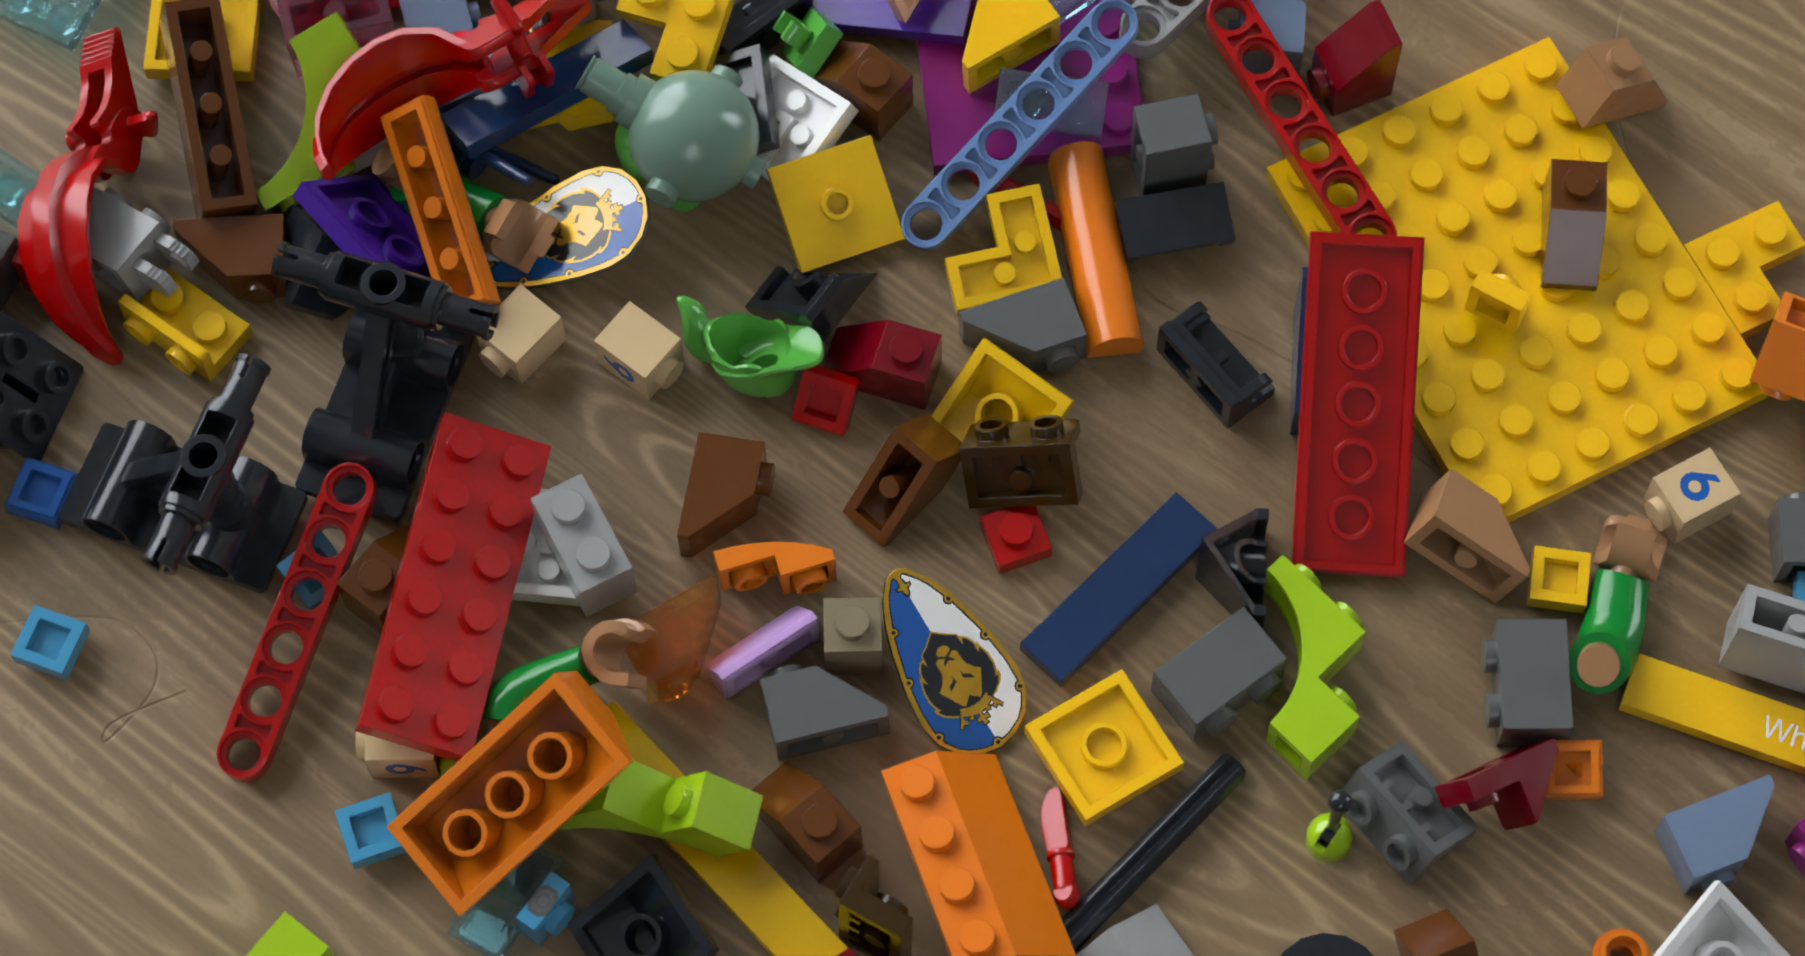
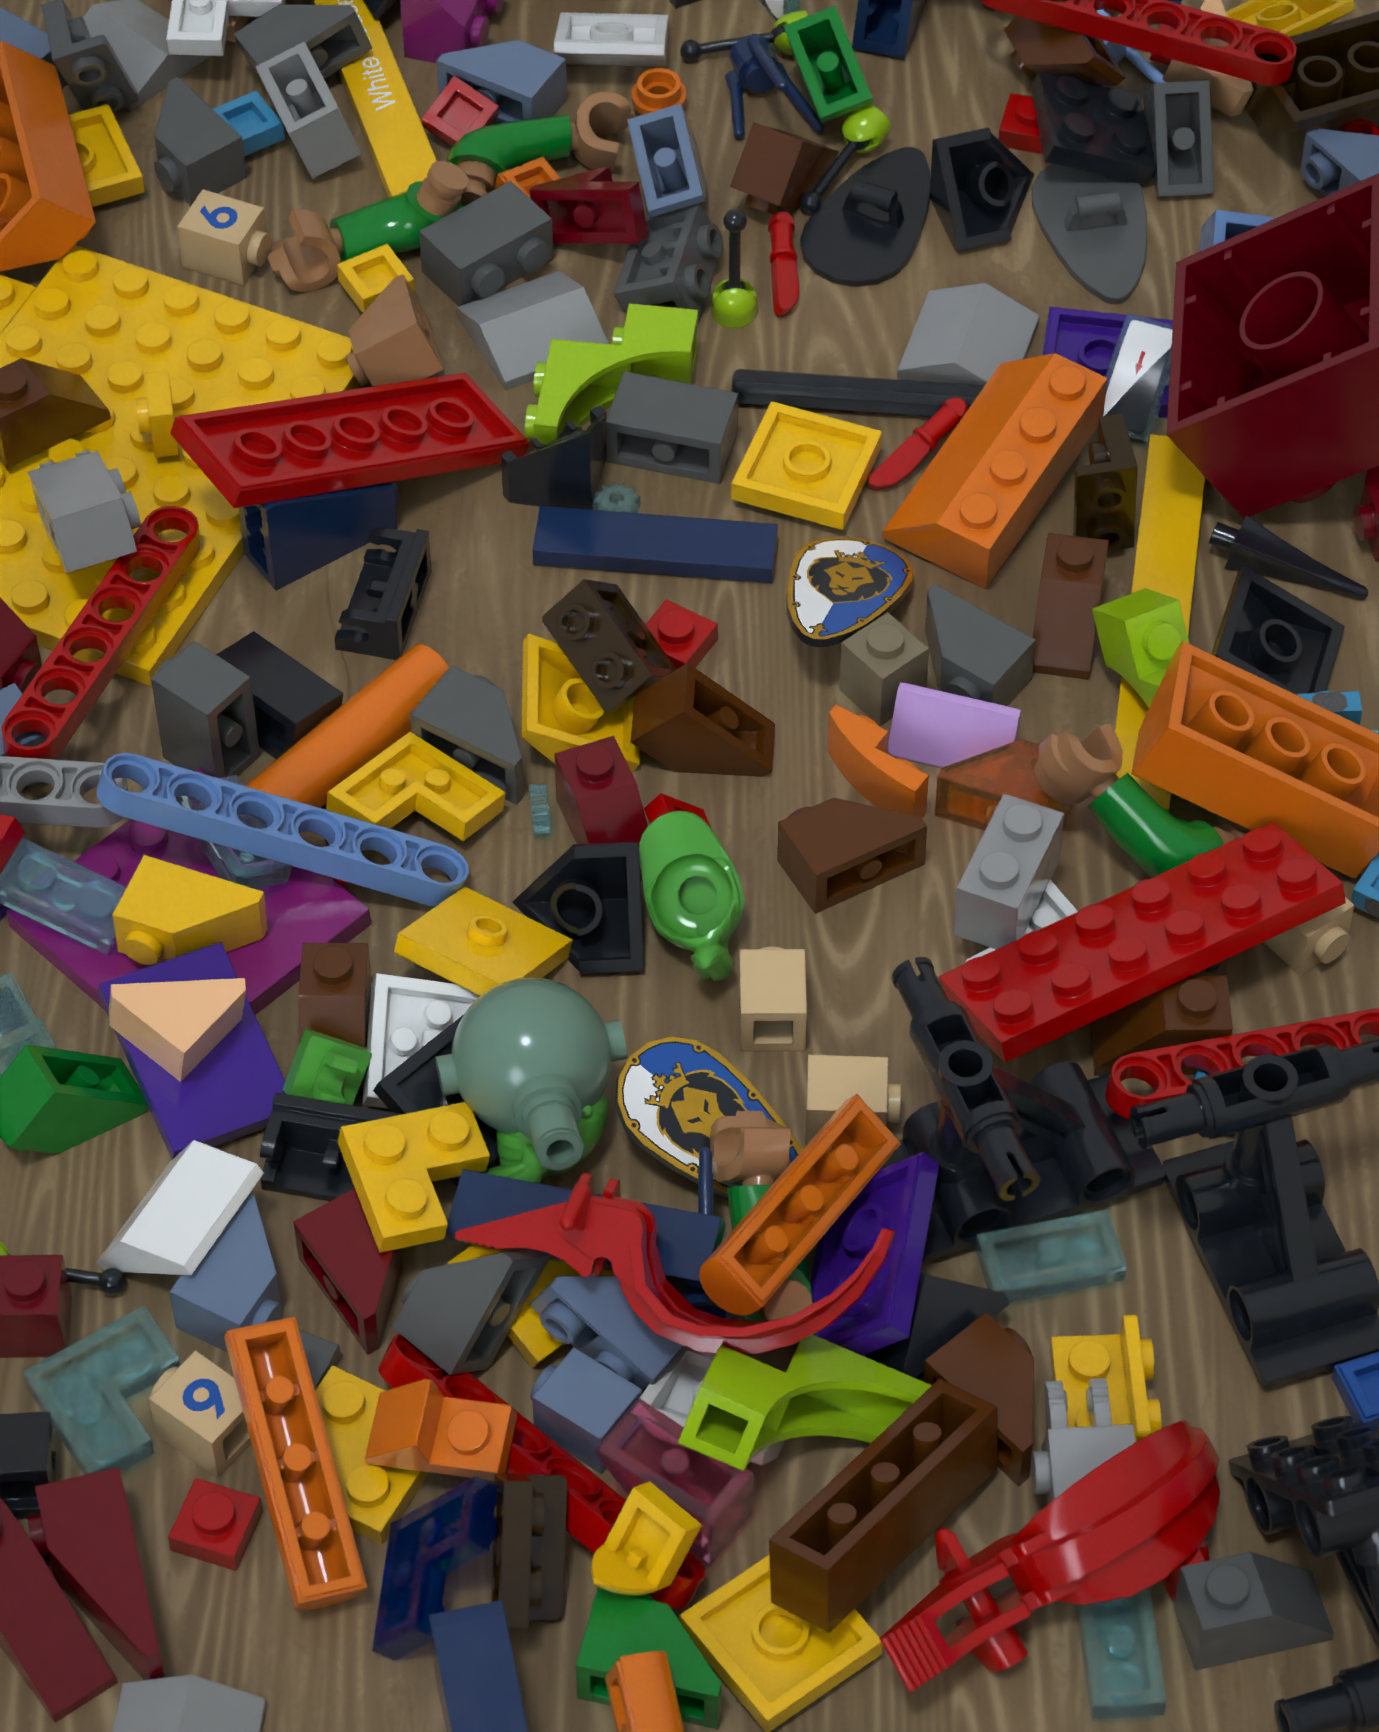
camera: 130 degrees left, 15 degrees down
(302, 369) = (1051, 1256): none -> clear light blue plate
(931, 323) = (539, 809): none -> clear light blue piece
(1185, 585) = (617, 499): none -> clear light blue piece
(1340, 906) = (783, 260): none -> red piece
(1423, 667) = (518, 324): none -> light grey slope
(1431, 177) = (85, 510): none -> light grey hinge
(1498, 870) = (667, 160): none -> sand blue slope
(1637, 765) = (511, 144): none -> piece
(1705, 769) = (459, 111): none -> red plate

